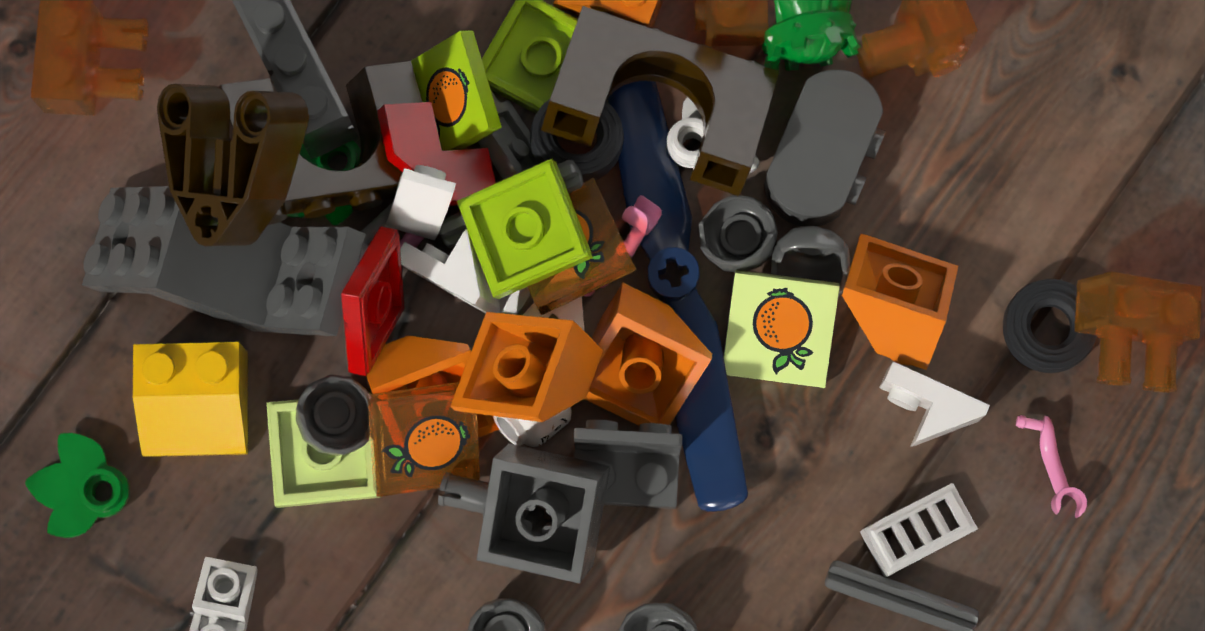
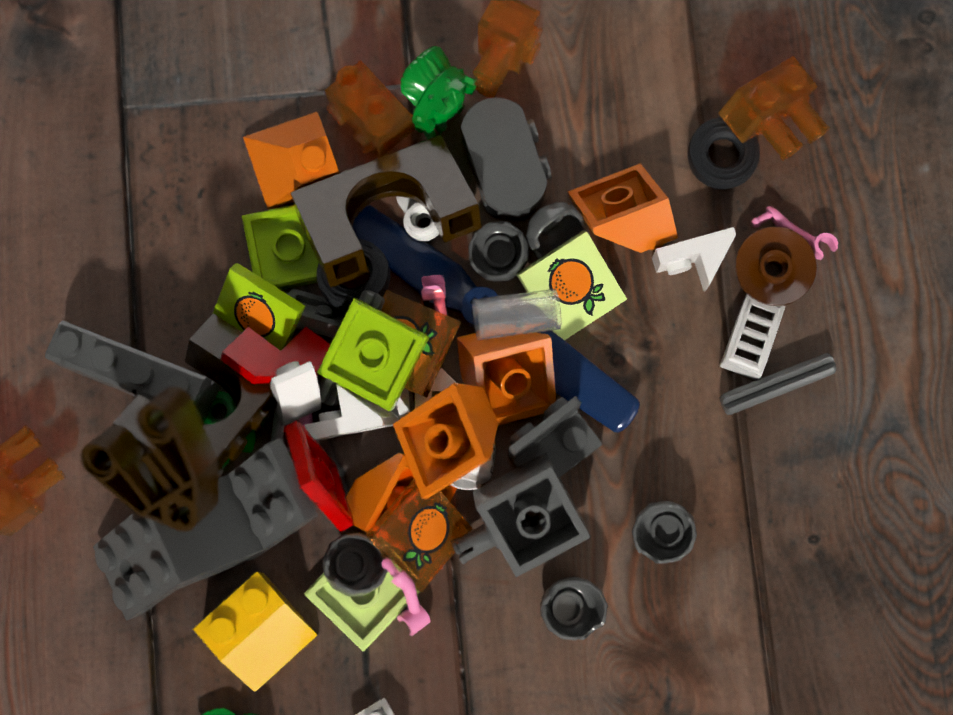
camera: 40 degrees left, 0 degrees up
(352, 515) = (415, 615): none -> bright pink piece
(698, 308) = (516, 314): none -> clear pin
(1024, 468) = (789, 253): none -> reddish brown dish

